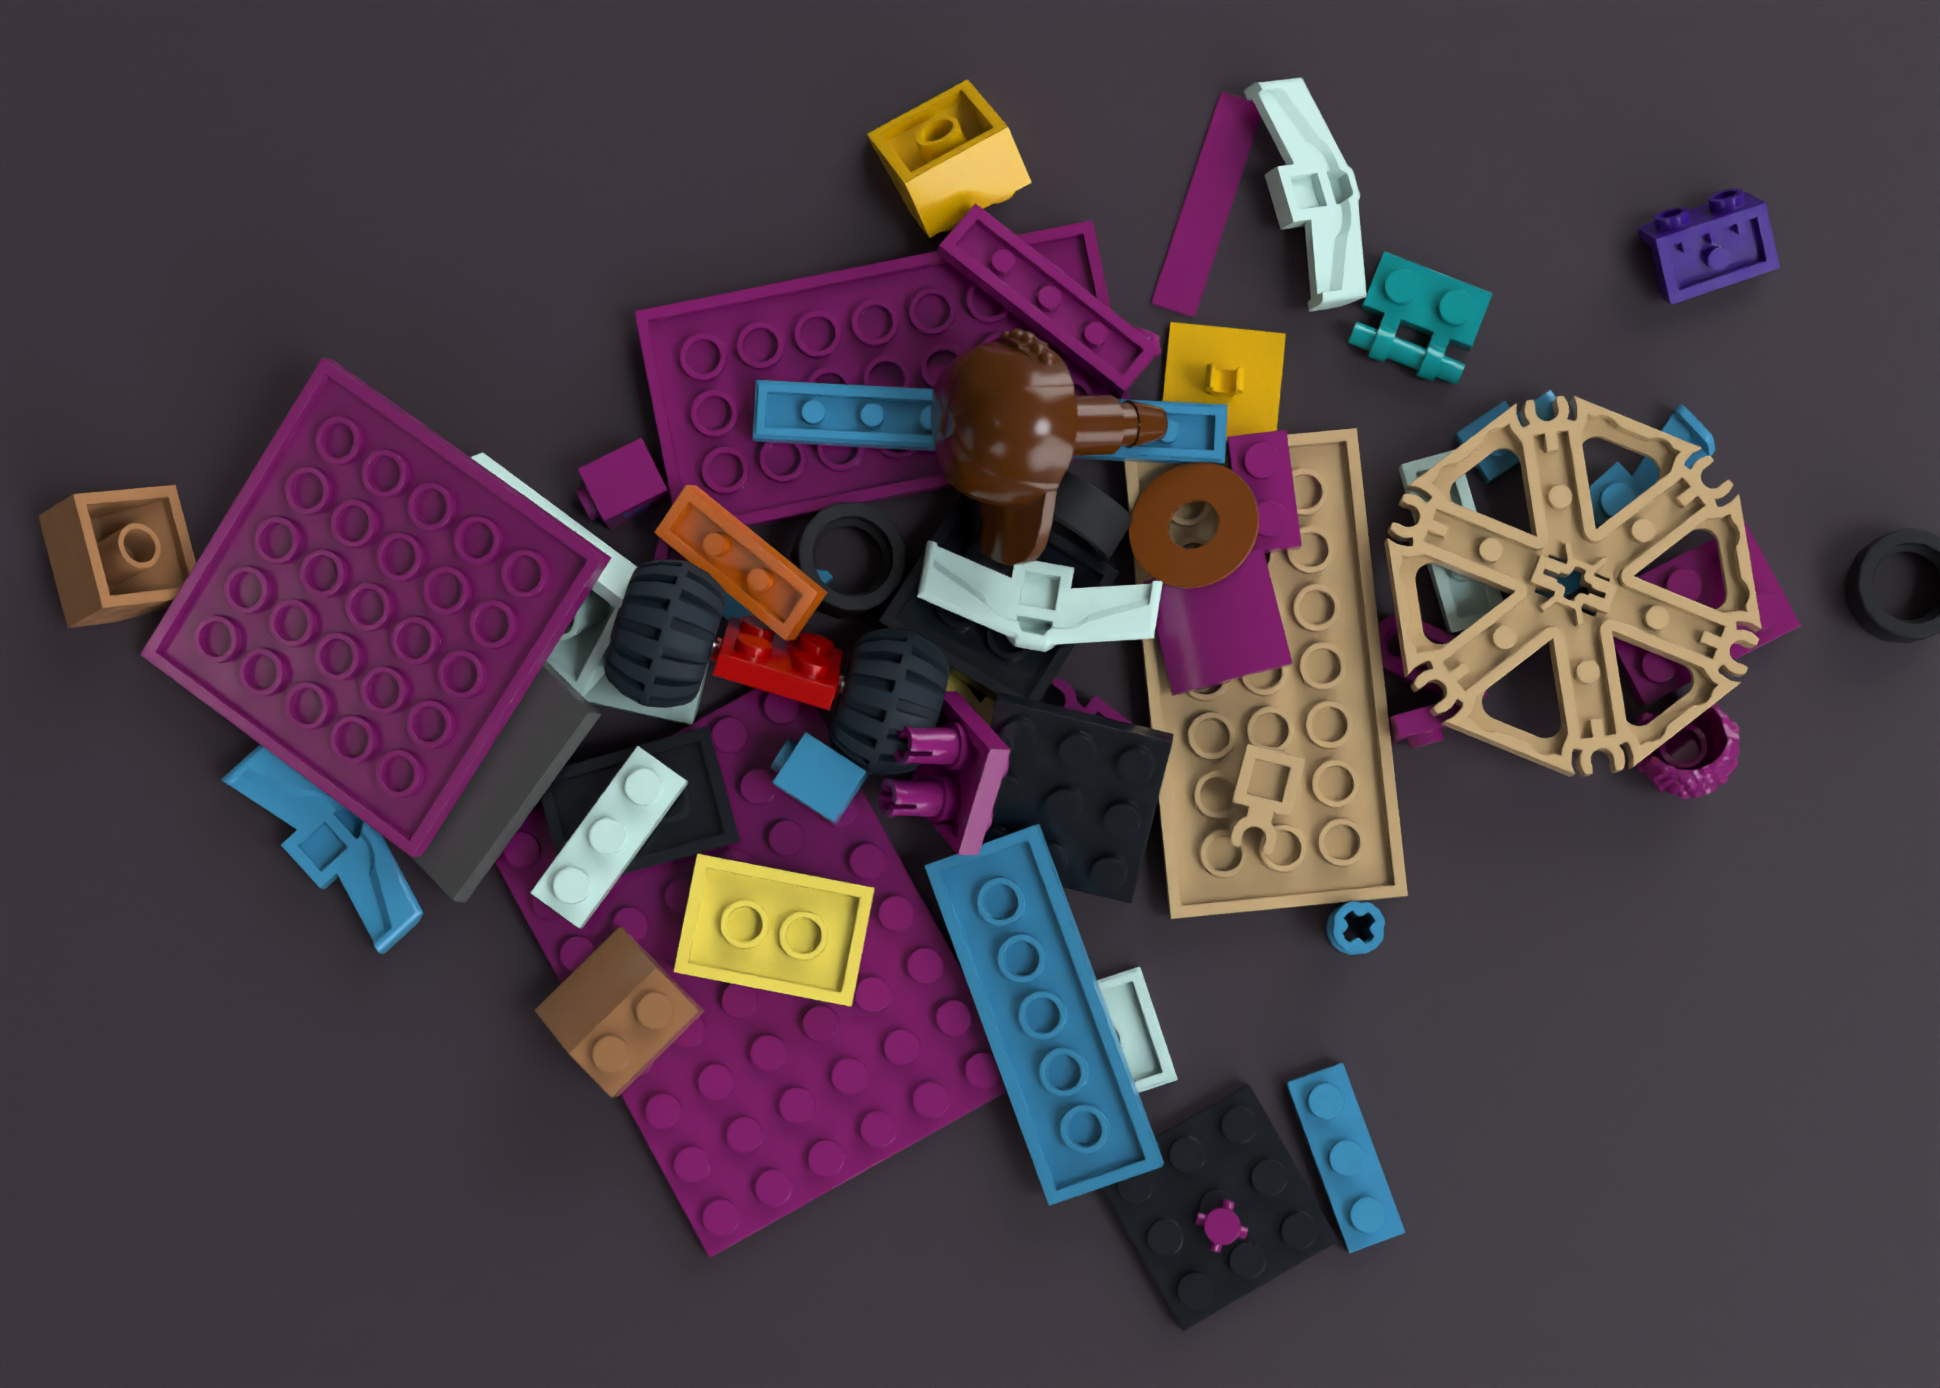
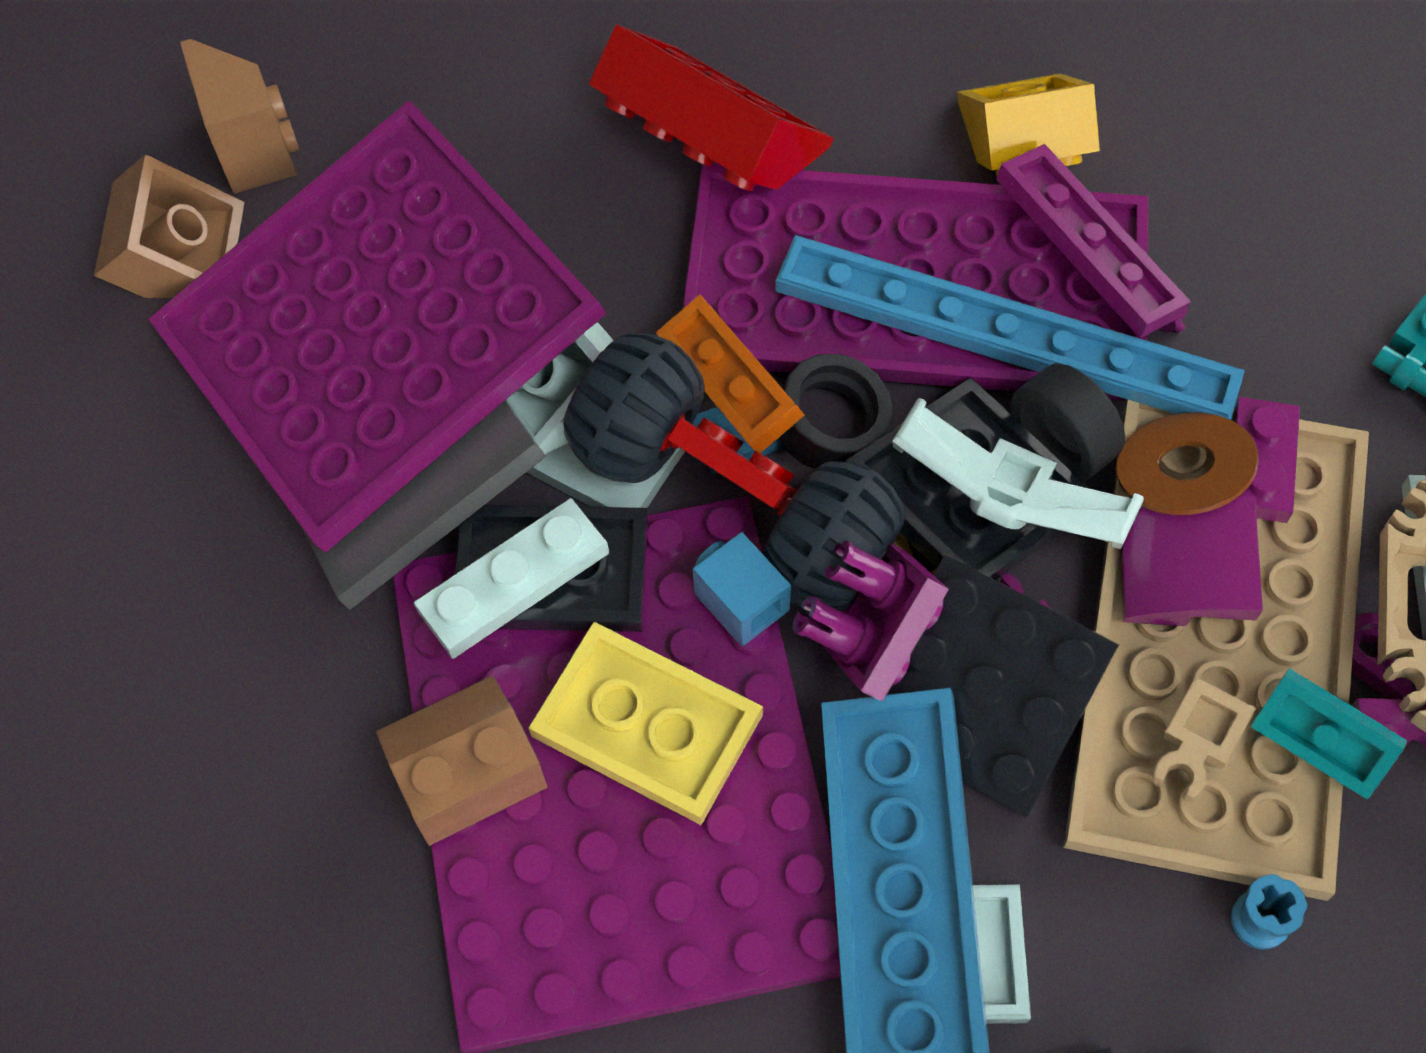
camera: 20 degrees right, 20 degrees down
(144, 410) = (241, 117): none -> medium nougat slope
(332, 845) = (248, 529): dark azure plate -> none
(621, 252) = (705, 111): none -> red slope
(622, 485) = (640, 294): magenta brick -> none
(1009, 431) = (1032, 295): reddish brown piece -> none
(1207, 205) = (1257, 224): magenta sticker -> none
(1227, 369) = (1268, 356): yellow piece -> none
(1313, 191) = (1366, 226): light aqua plate -> none
(1373, 758) = (1329, 734): none -> teal plate

